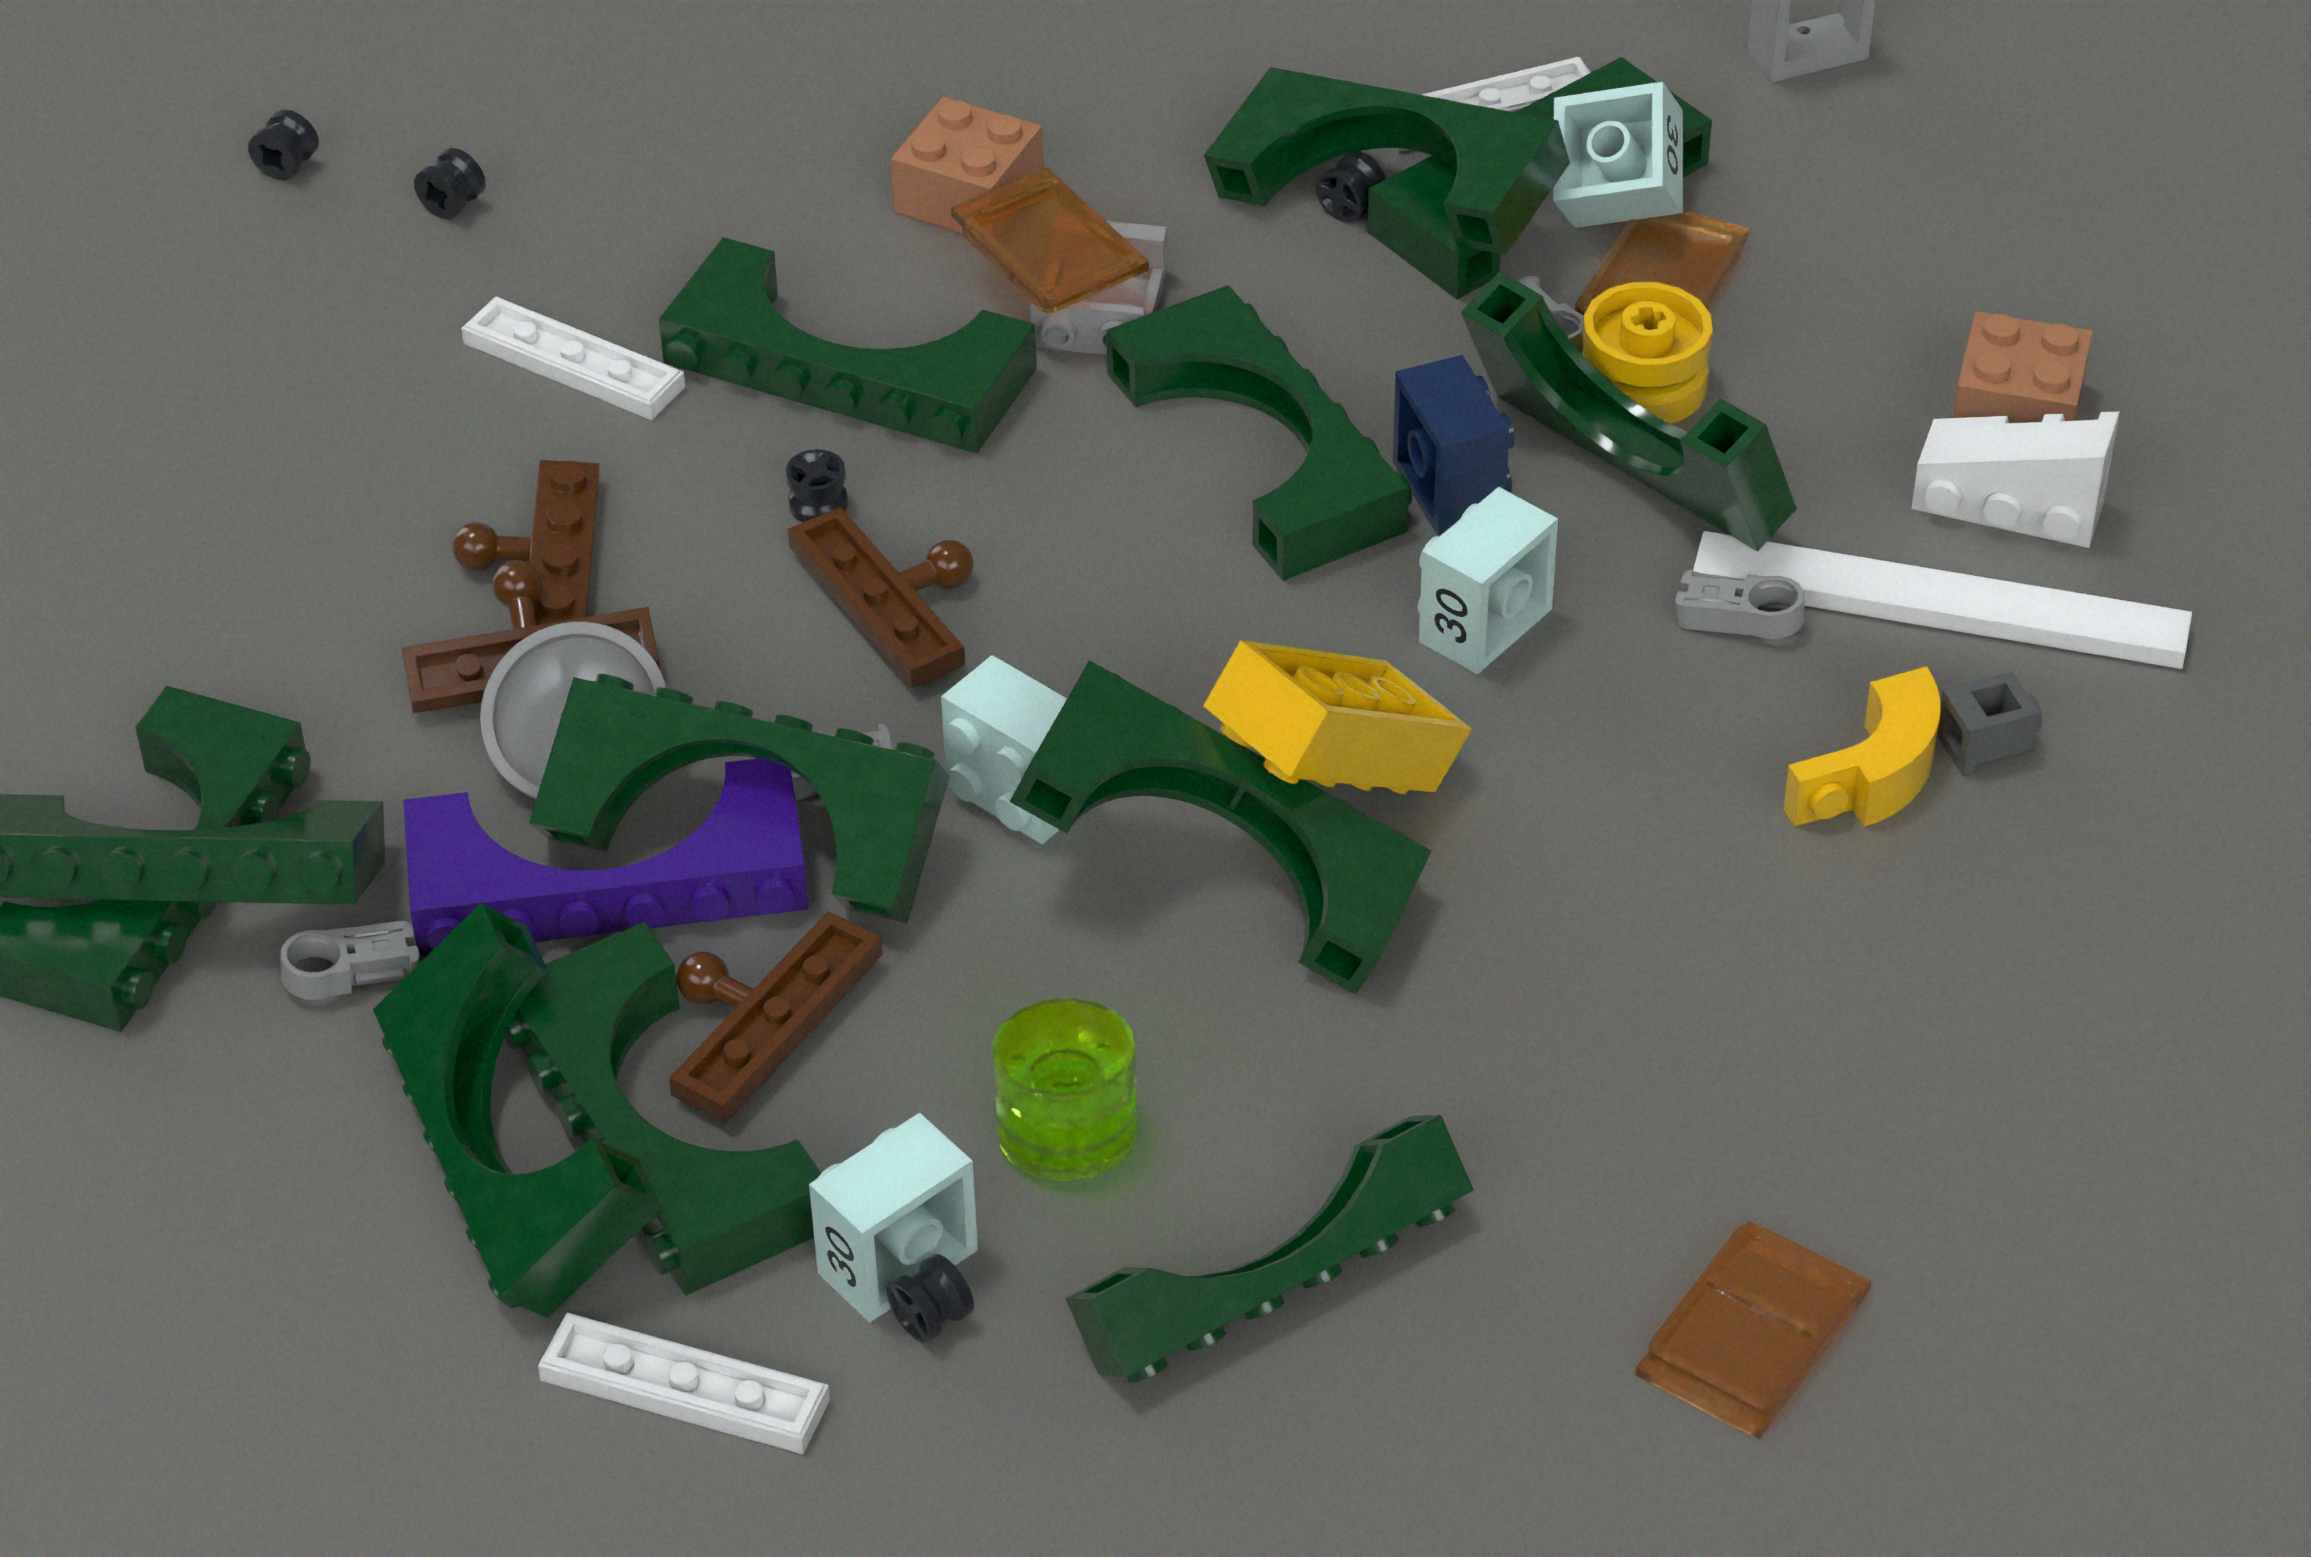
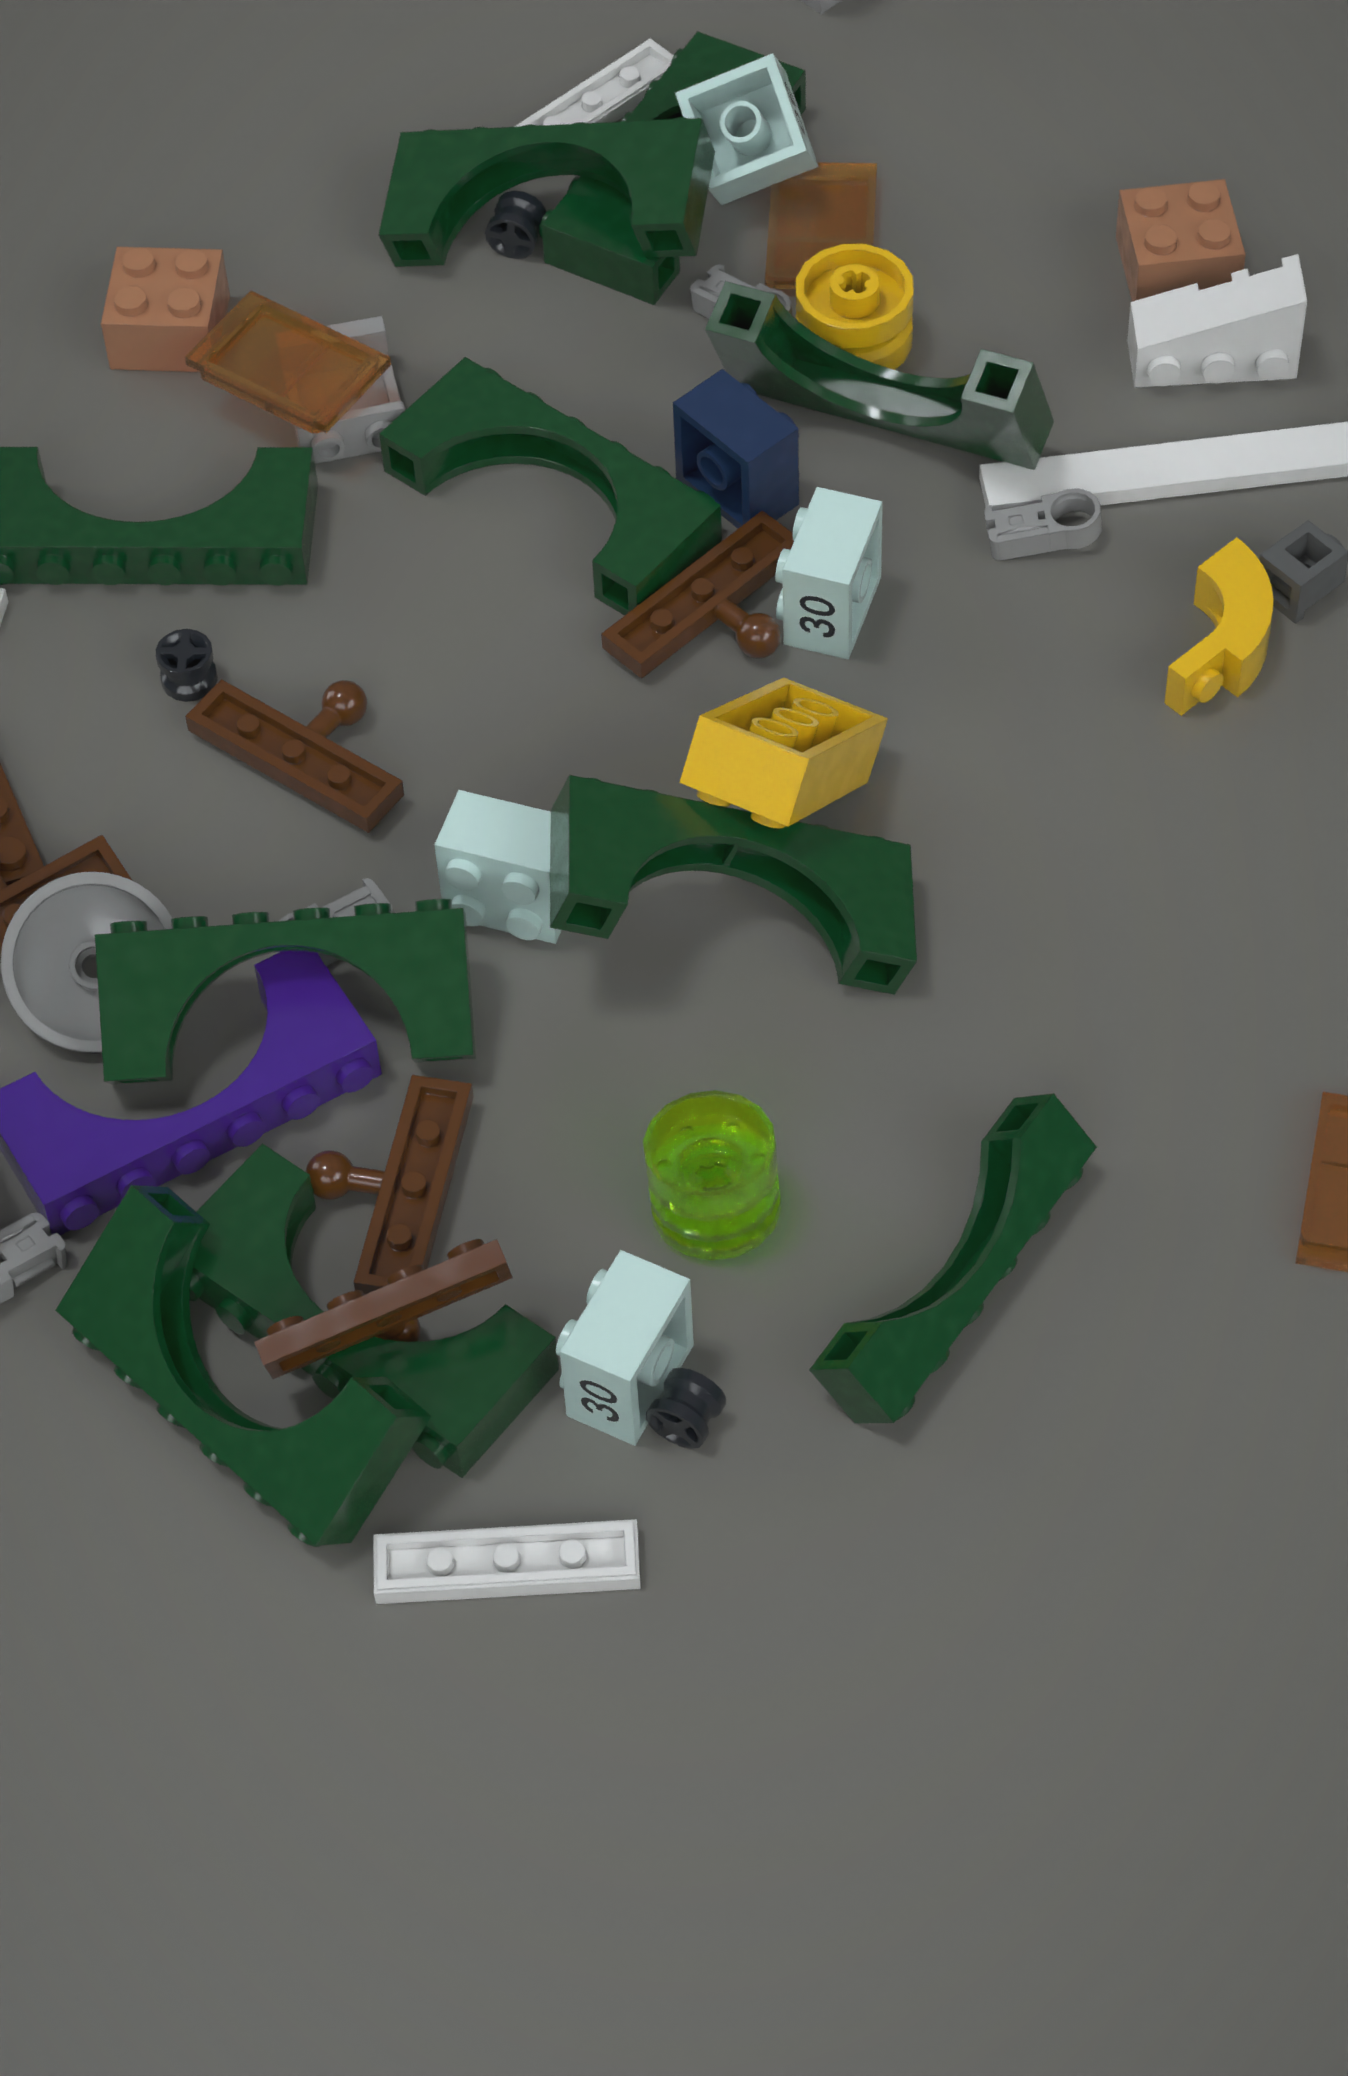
camera: 20 degrees left, 10 degrees up
(677, 1097) = (386, 1312): none -> reddish brown plate
(1344, 573) = (703, 595): none -> reddish brown plate

